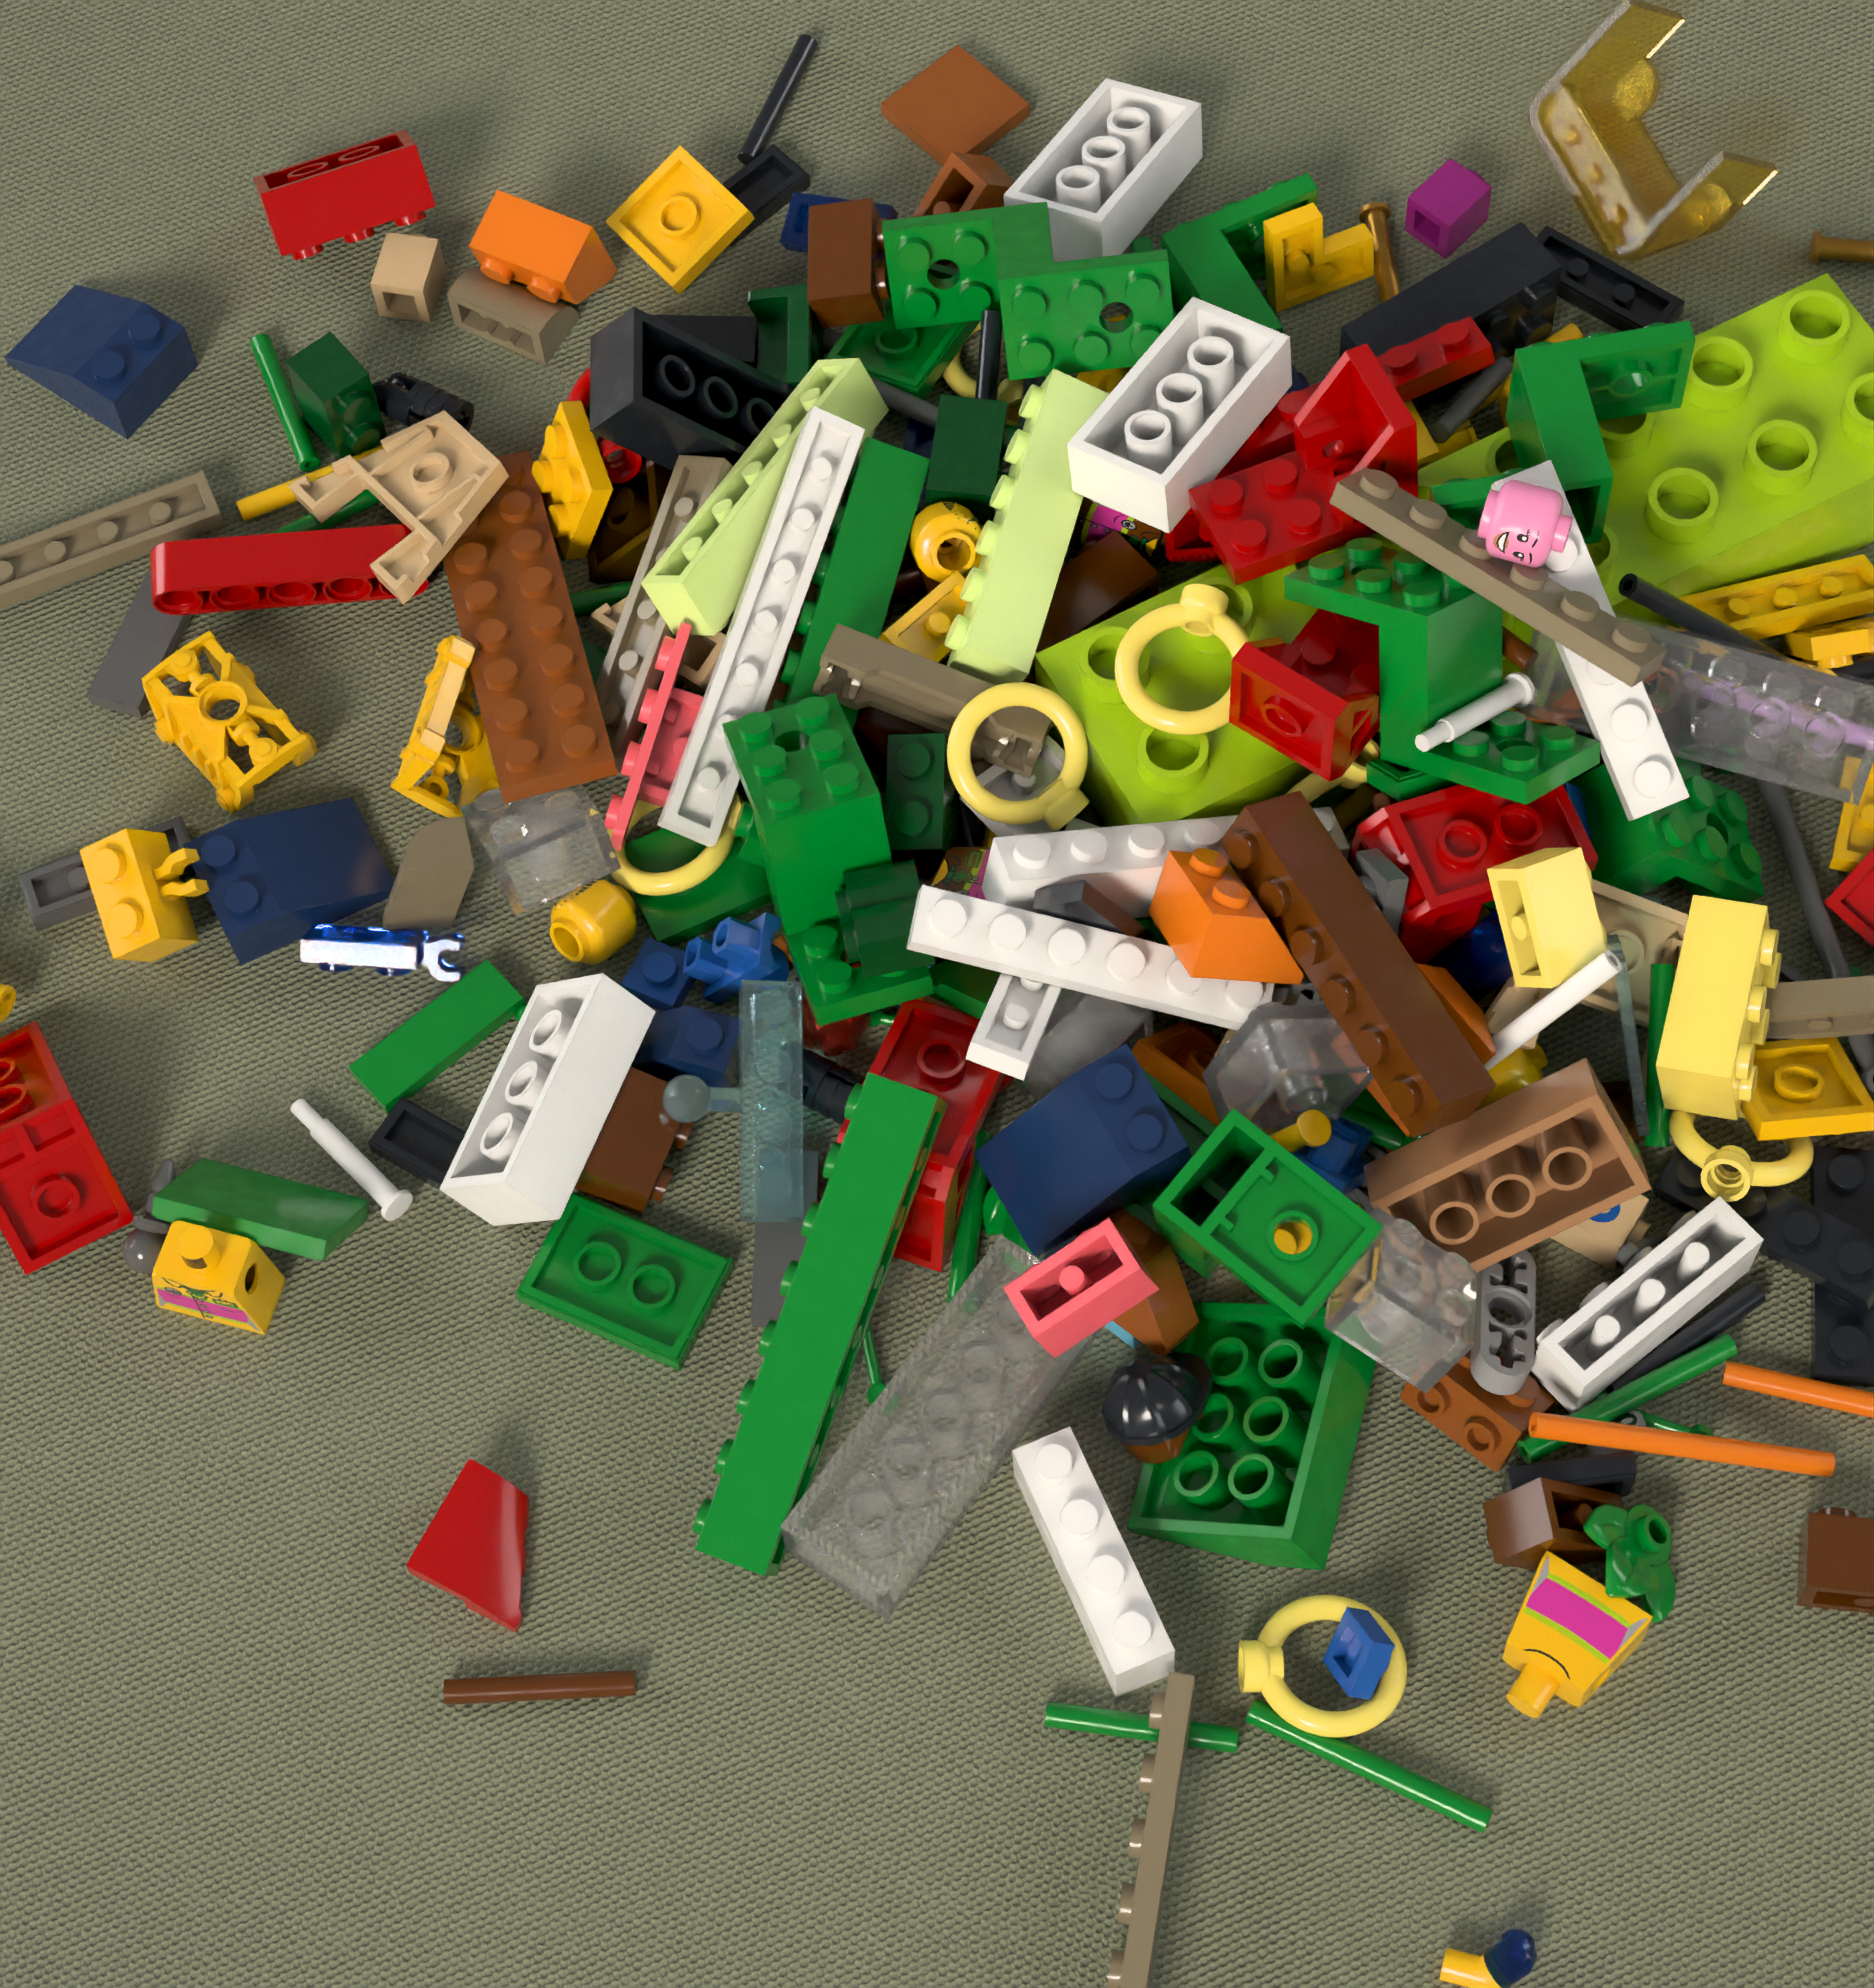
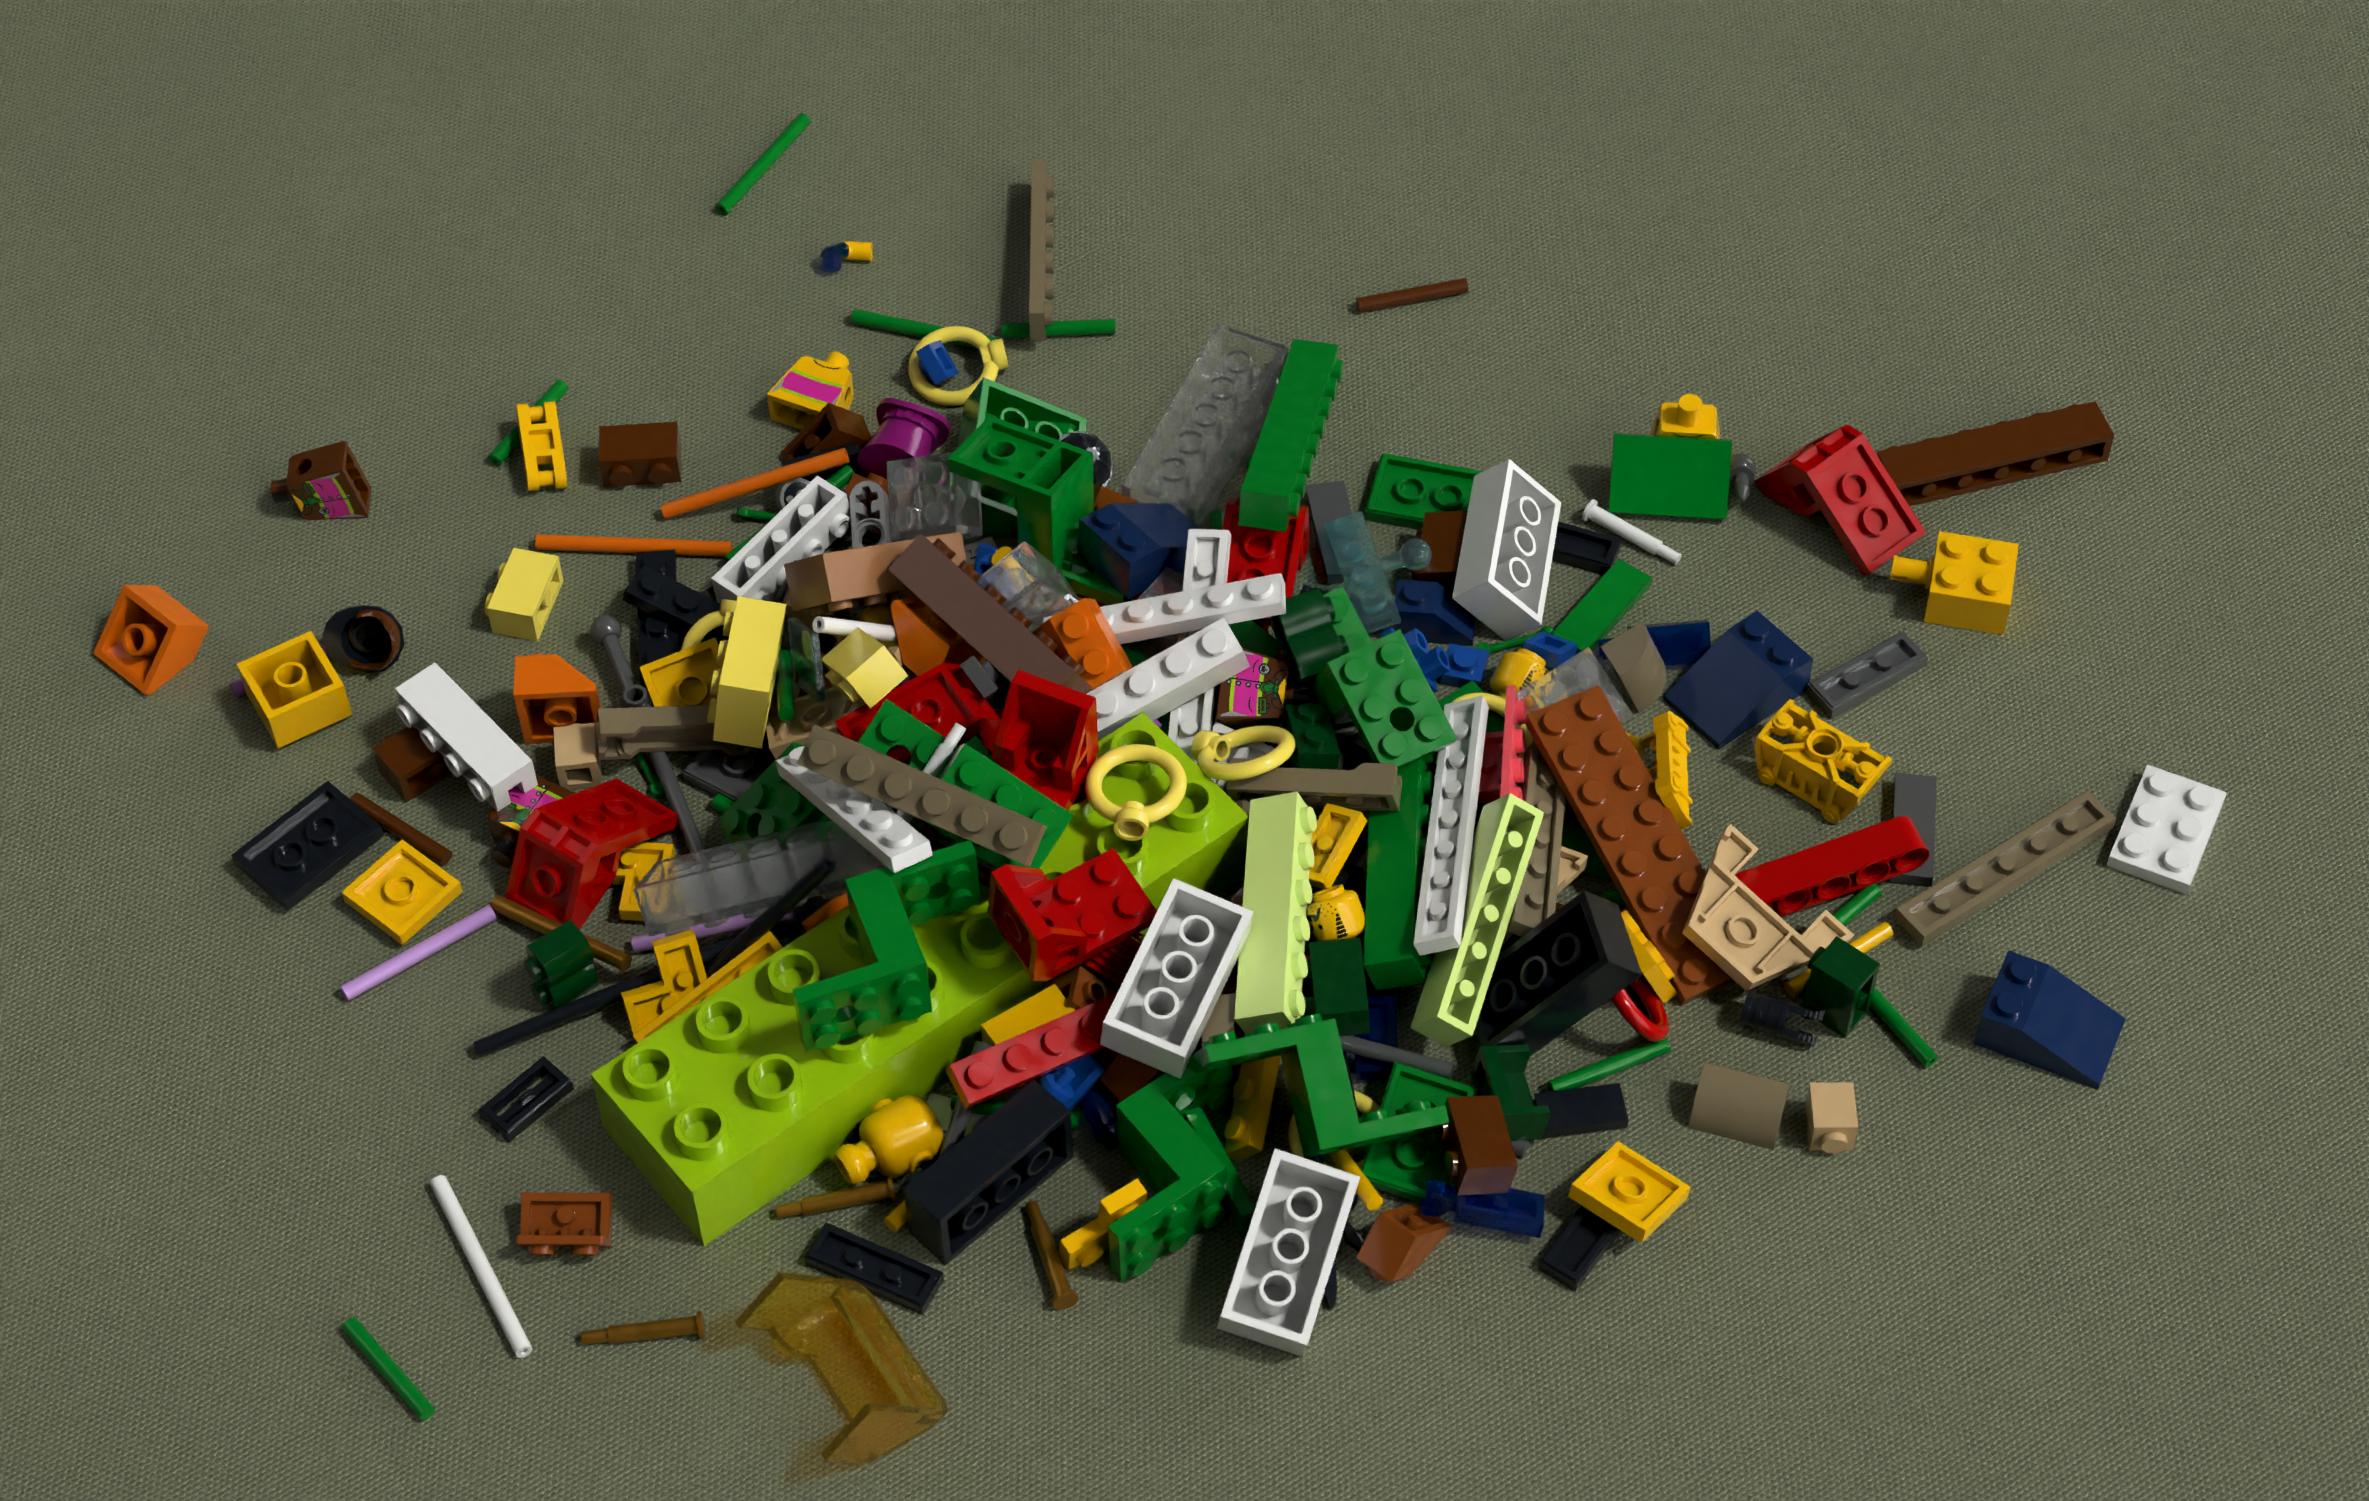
camera: 165 degrees right, 10 degrees down
(142, 893) = (1830, 630): yellow brick -> none
(345, 194) = (1905, 1149): red brick -> none
(478, 1545) = (1471, 348): red slope -> none
(534, 961) = (1551, 649): none -> blue plate
(540, 250) = (1725, 1130): orange slope -> none
(778, 99) = (1586, 1334): black bar -> none
(955, 107) = (1434, 1346): dark orange tile -> none
(1081, 1288) = (1133, 451): coral brick -> none
(1087, 906) = (1165, 632): black tile -> none
(1093, 1562) = (1101, 384): white brick -> none
(1436, 1475) = (903, 433): none -> magenta hat
(1448, 208) = (1004, 1303): magenta brick -> none
(1524, 523) = (904, 795): bright pink head -> none
(1636, 1555) = (780, 432): green plate -> none

